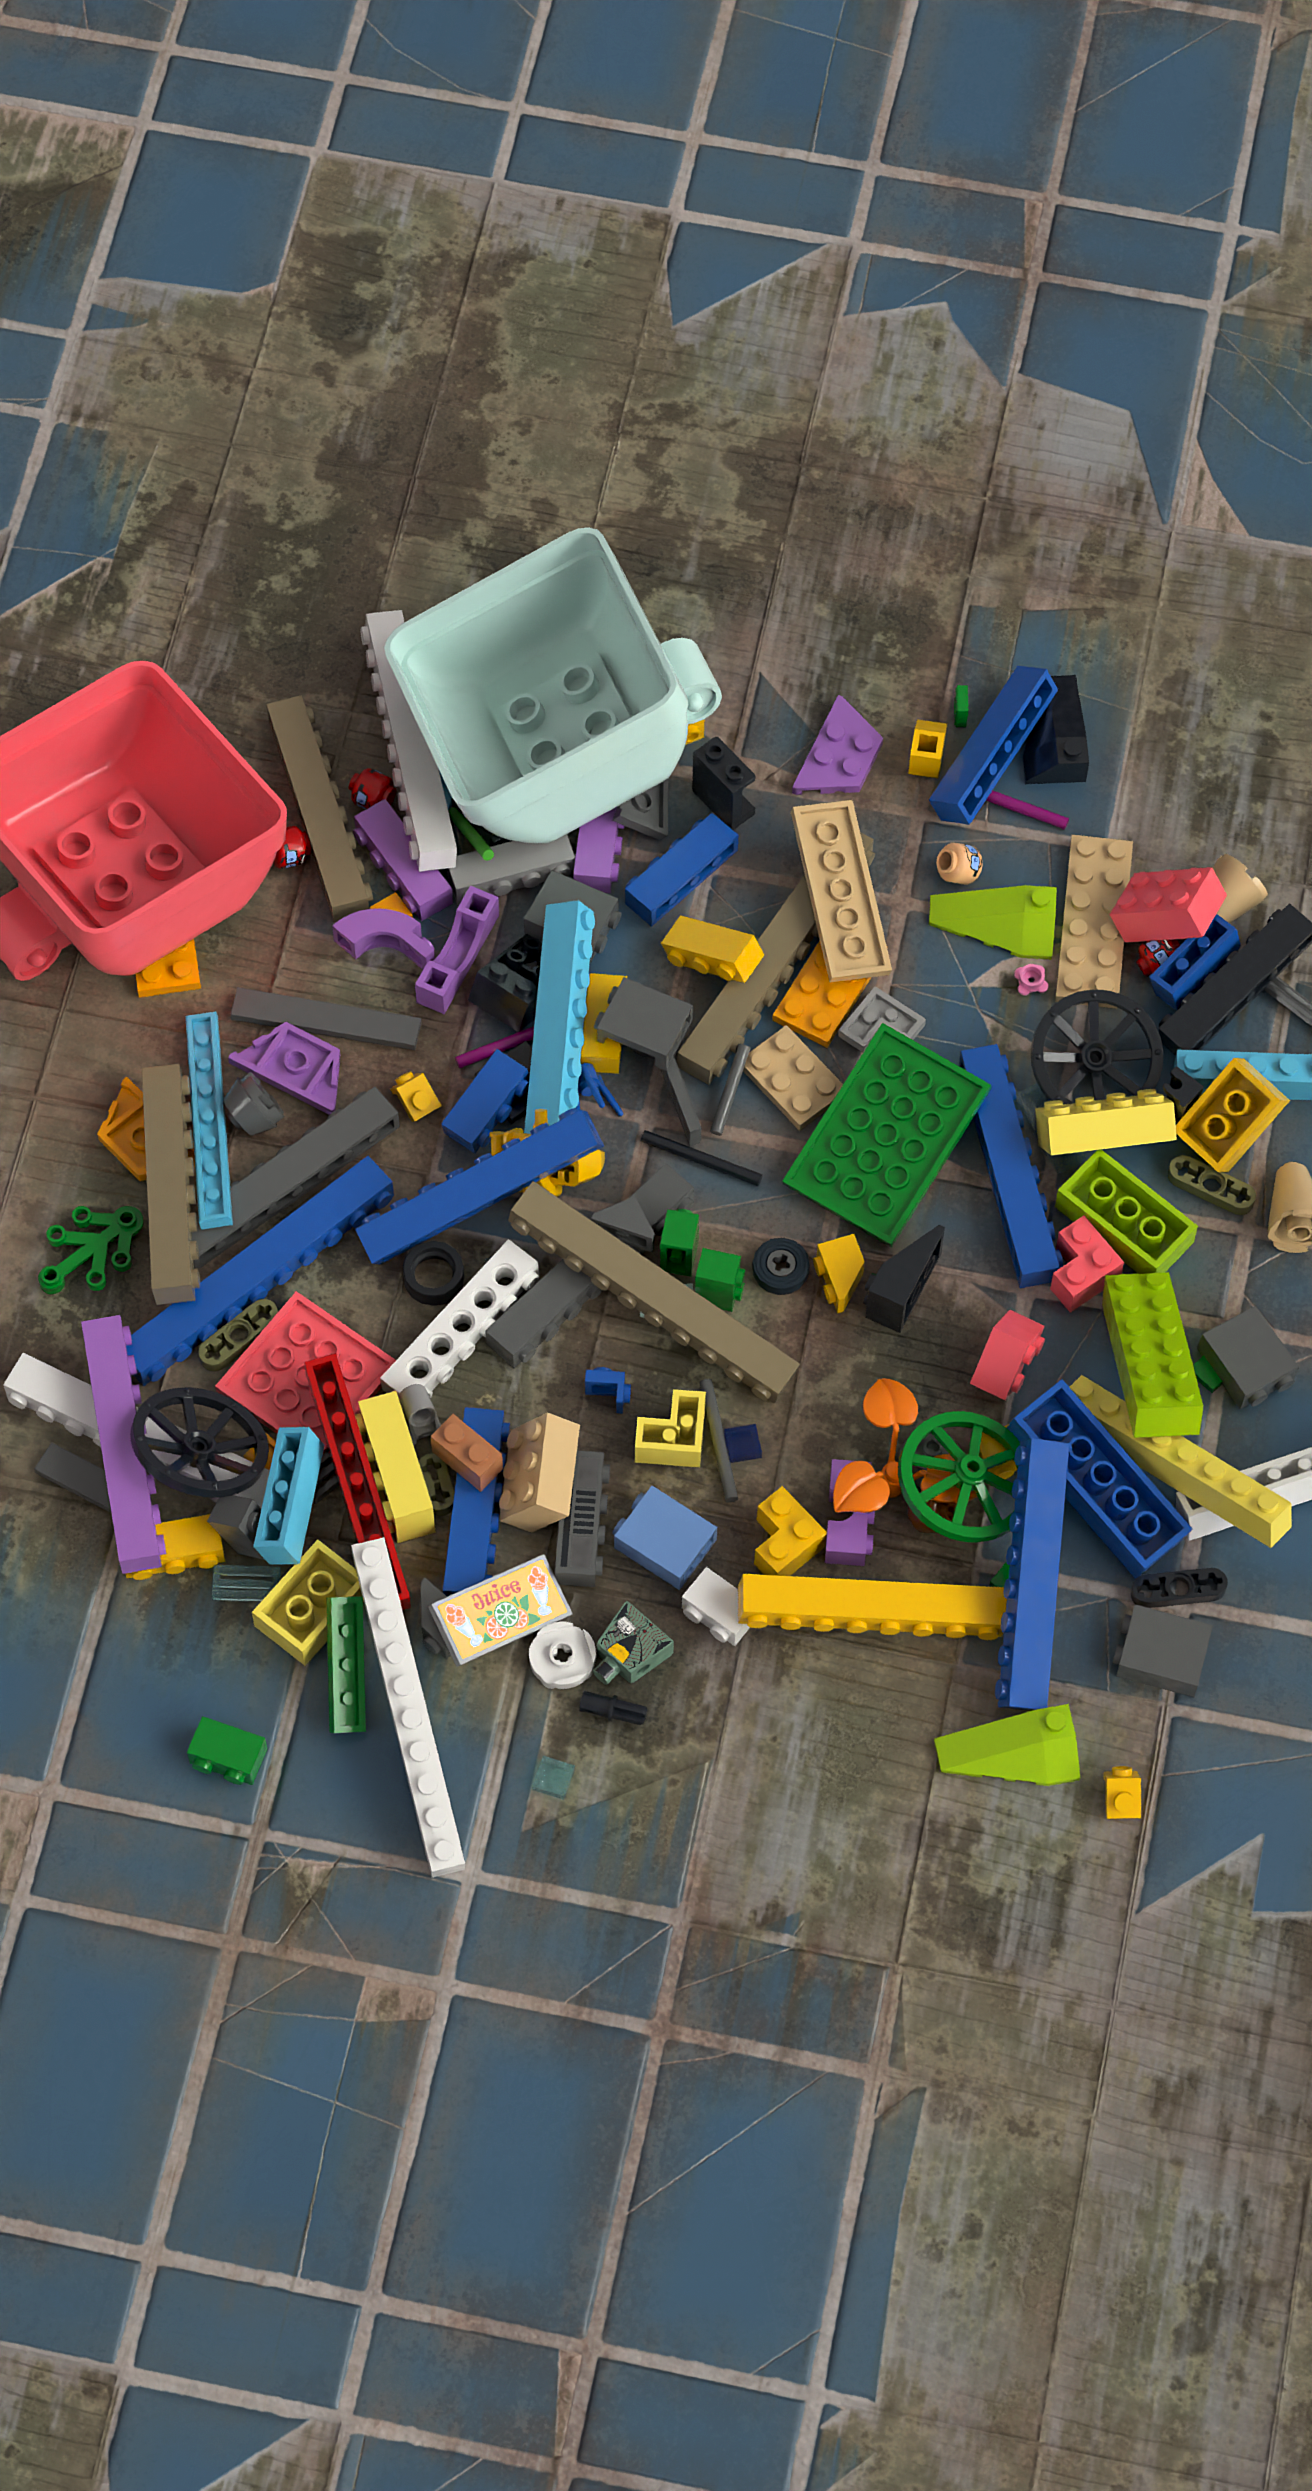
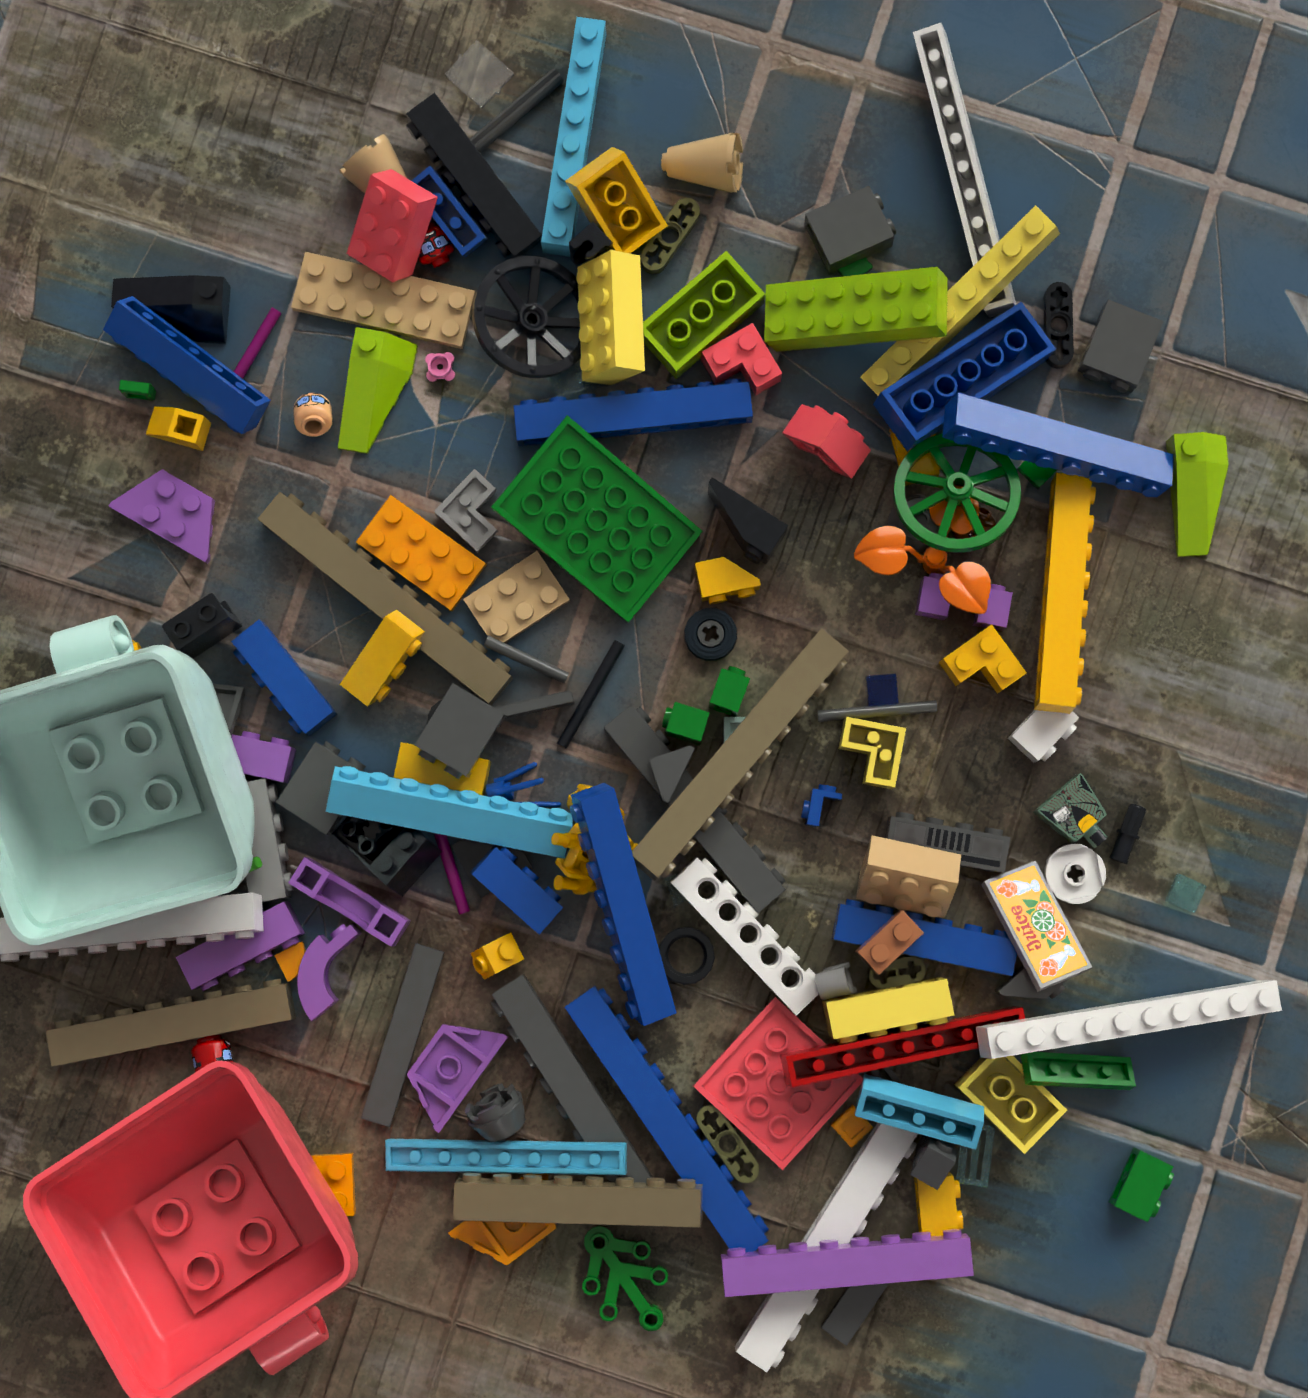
camera: 80 degrees left, 20 degrees up
(199, 1446) = (852, 1187): black wheel -> none
(371, 788) = (158, 969): red head -> none
(664, 1537) = (971, 770): medium blue brick -> none
(841, 891) = (336, 528): tan plate -> none
(1123, 1793) = (1244, 401): yellow bracket -> none

